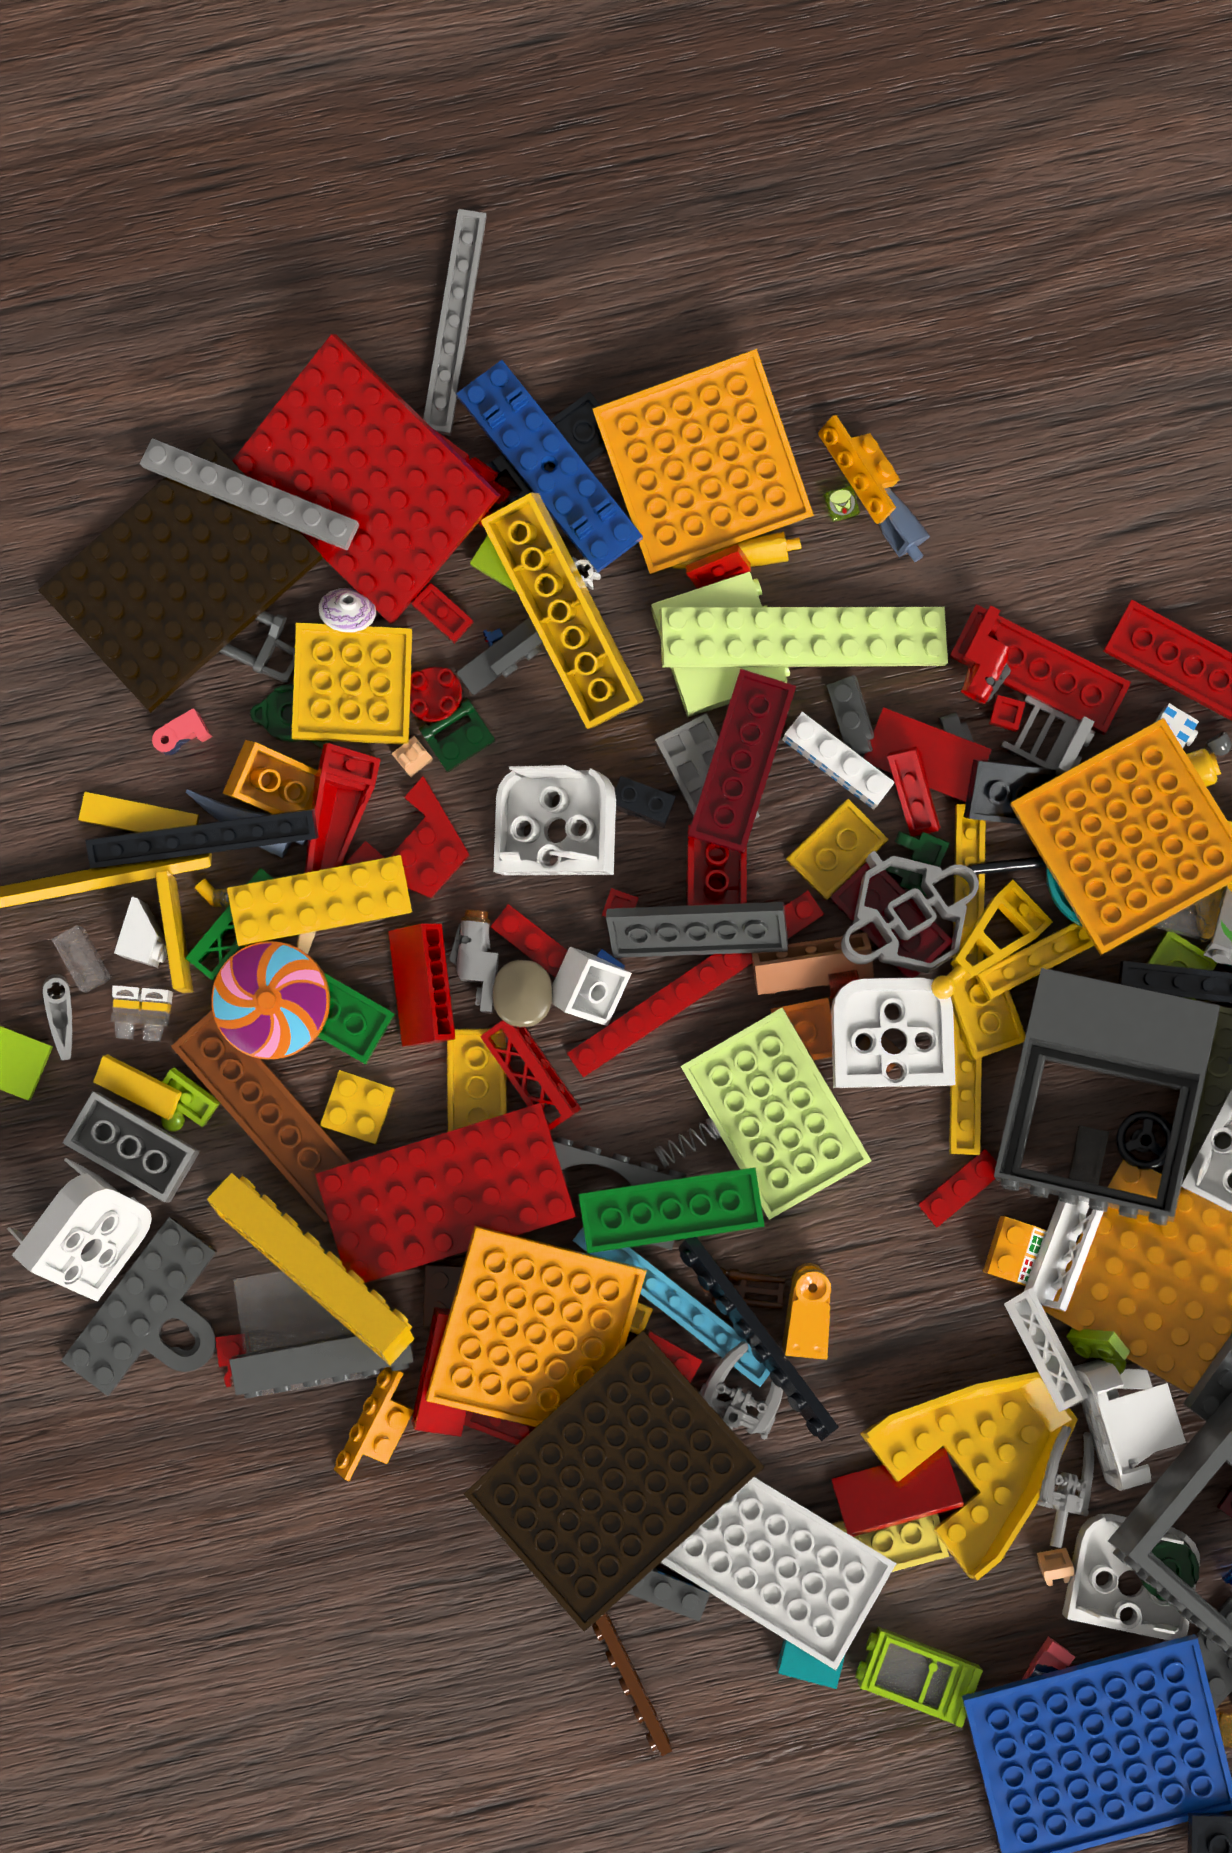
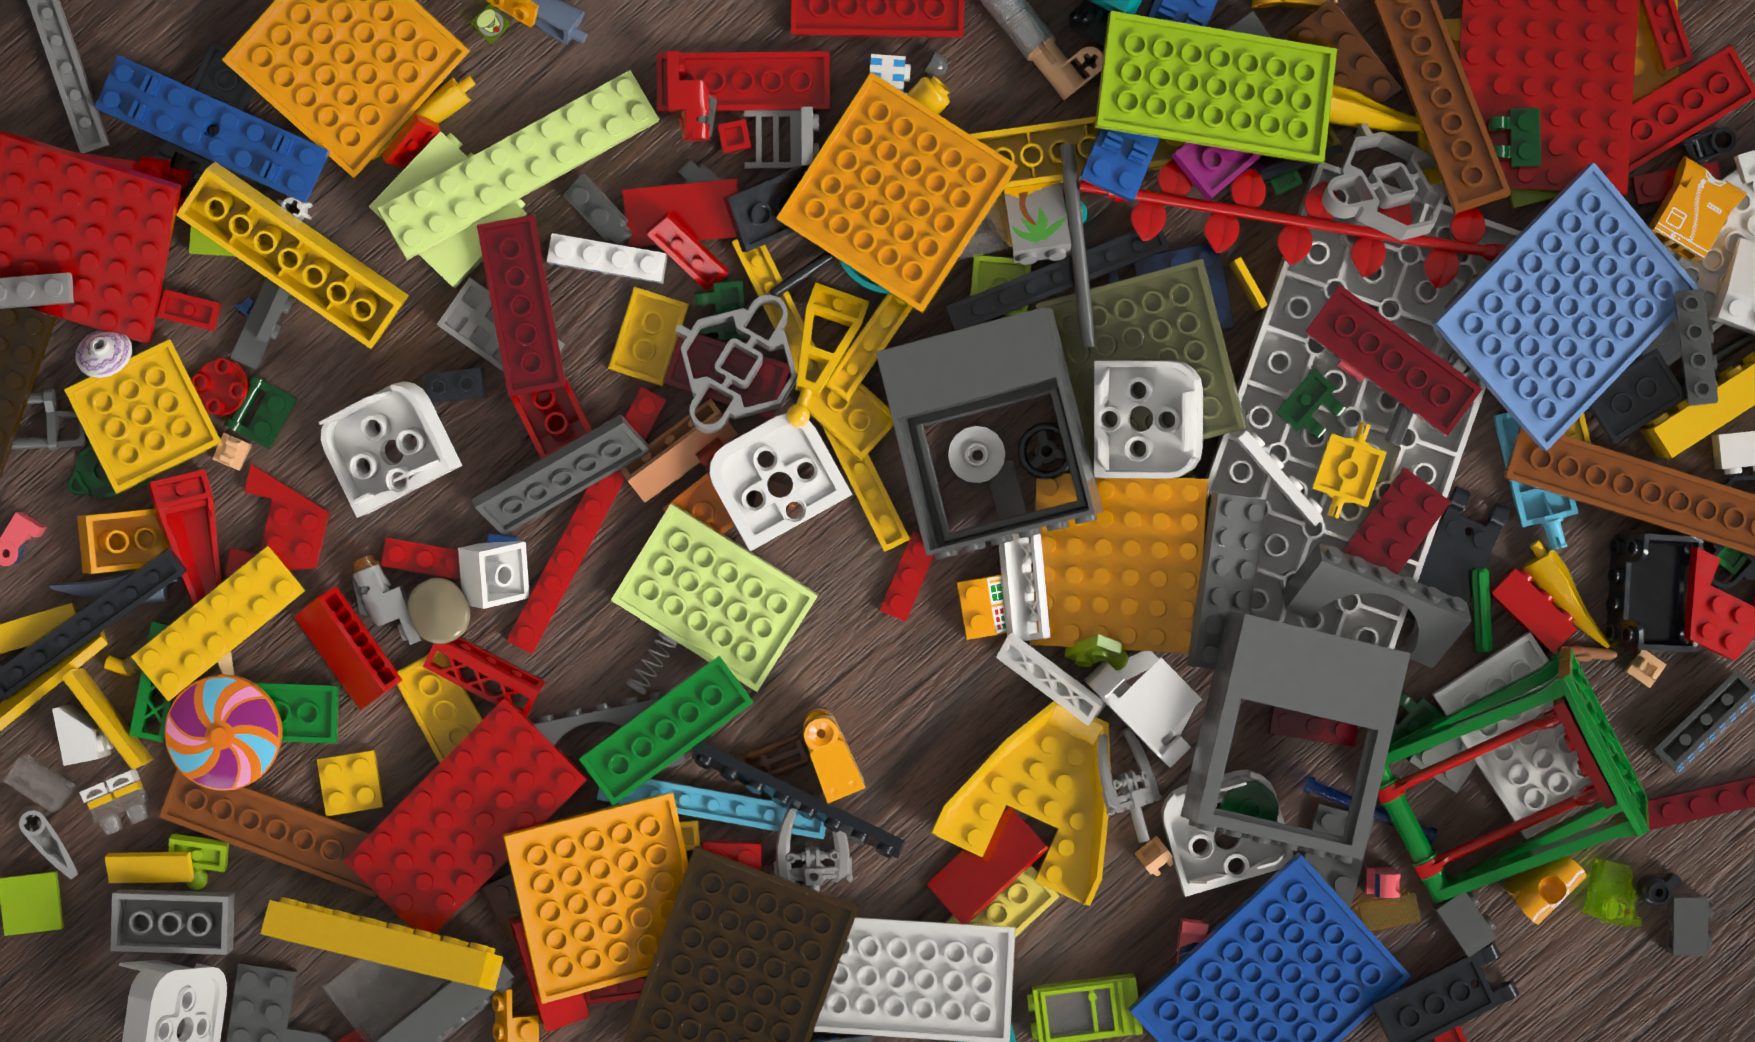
camera: 25 degrees left, 5 degrees up
(619, 900) = (481, 483): red plate -> none
(1087, 1097) = (972, 440): none -> white dish

